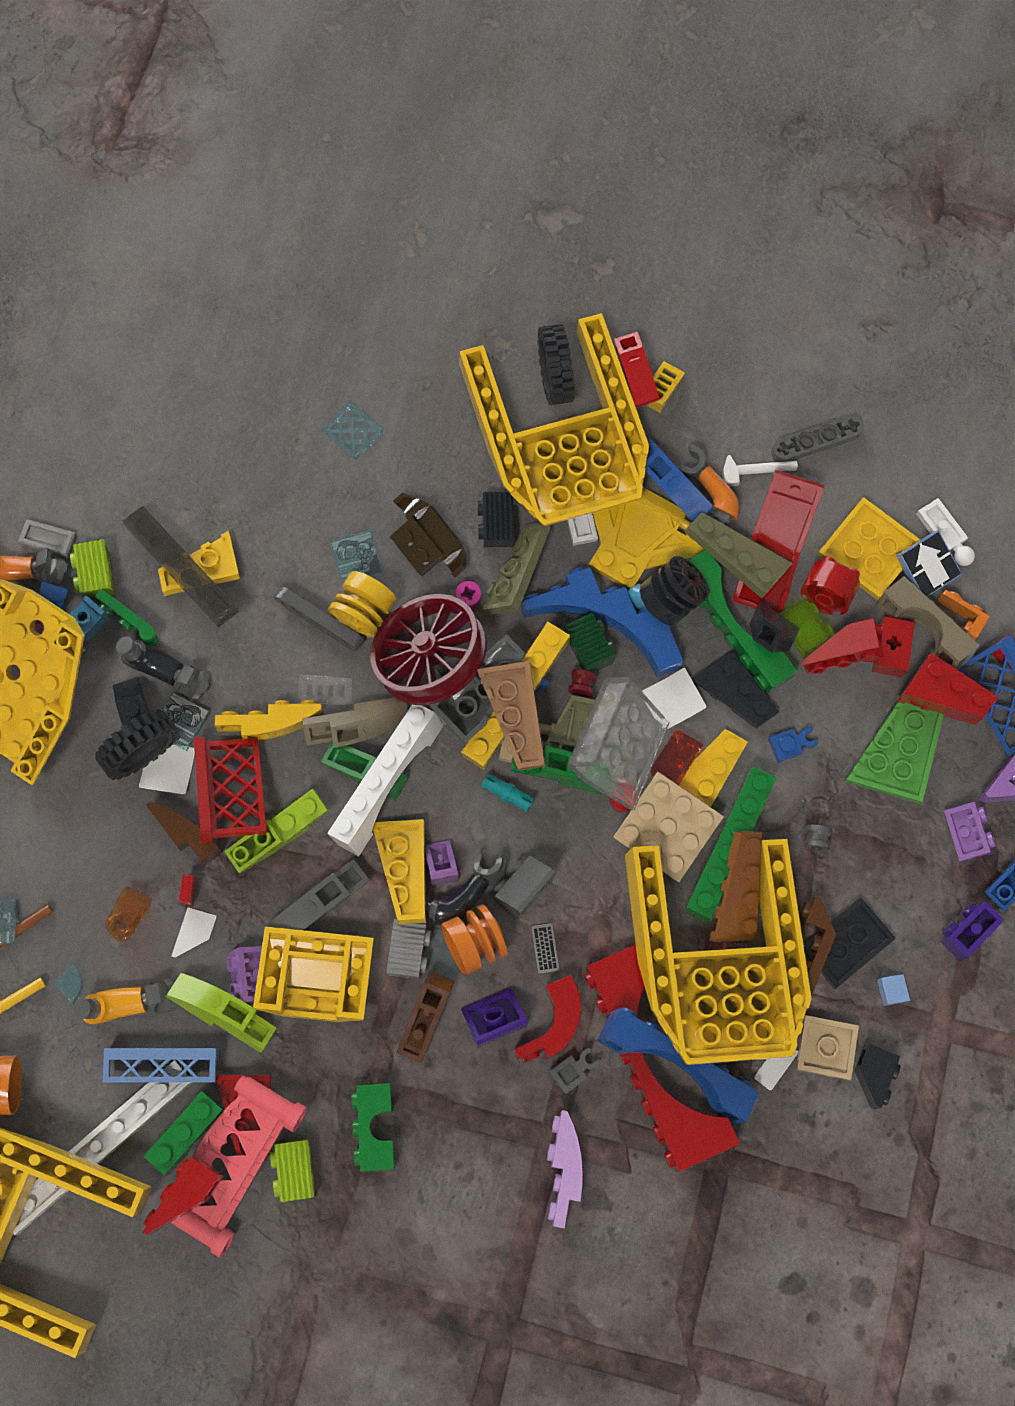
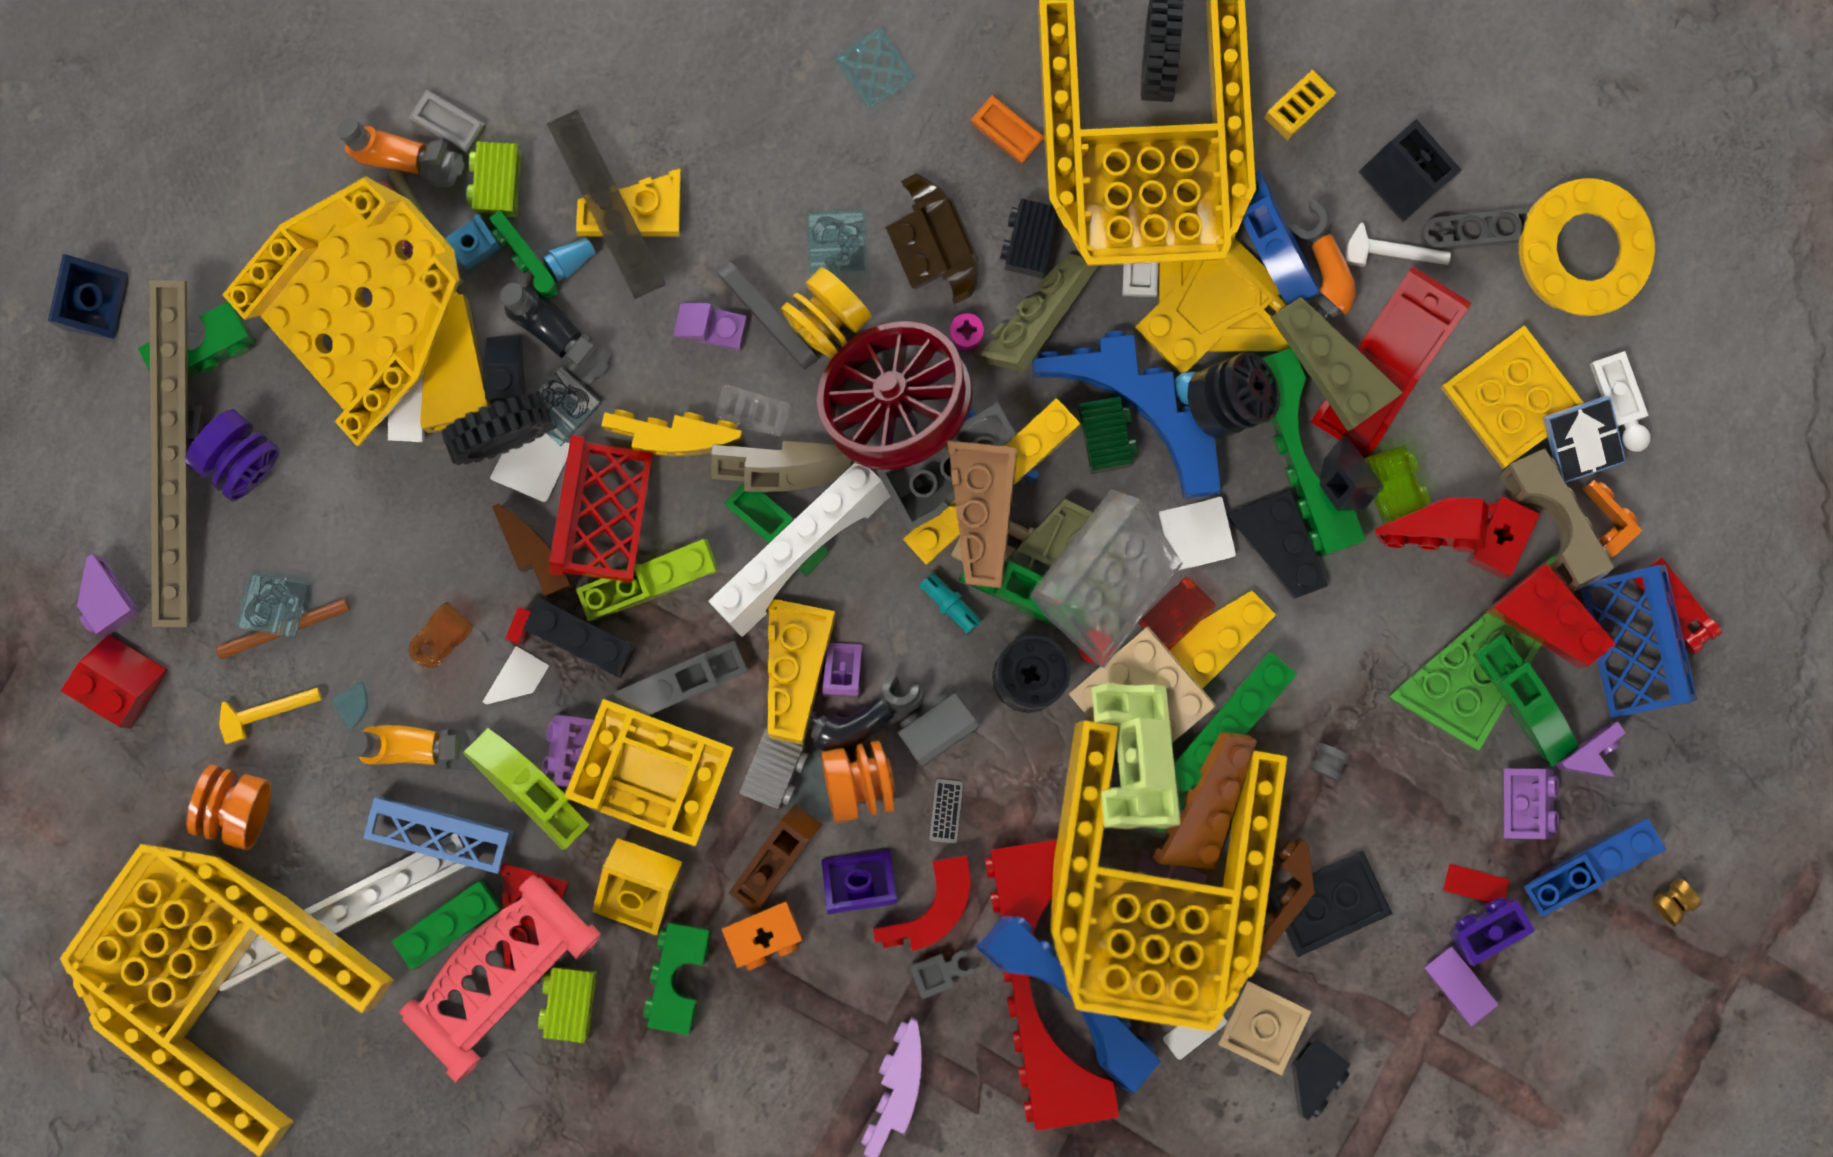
camera: 25 degrees right, 10 degrees up
(53, 593) = (435, 202): blue beam -> none
(65, 753) = (405, 416): none -> white slope
(91, 713) = (453, 370): none -> yellow slope
(161, 613) = (568, 258): none -> dark azure cone
(191, 1189) = (439, 995): red slope -> none
(236, 886) = (579, 638): none -> black arch
(277, 637) = (710, 326): none -> medium lavender slope
(324, 1065) = (636, 886): none -> yellow slope
(437, 1062) = (742, 936): none -> orange brick
(459, 450) = (1007, 130): none -> orange tile
(582, 683) = (1083, 485): dark red wheel -> none
(595, 821) = (1049, 666): none -> black wheel
(636, 369) = (1269, 78): red slope -> none
(684, 863) = (1144, 756): none -> yellowish green bracket
(752, 410) = (1410, 171): none -> black slope
(788, 744) = (1328, 631): blue plate -> none
(831, 586) = (1443, 437): red brick -> none
(867, 457) = (1540, 257): none -> yellow plate
(893, 990) = (1370, 977): light blue slope -> none
(947, 901) = (1475, 884): none -> red sticker
(949, 755) = (1528, 700): none -> green slope
(962, 978) = (1461, 987): none -> medium lavender slope

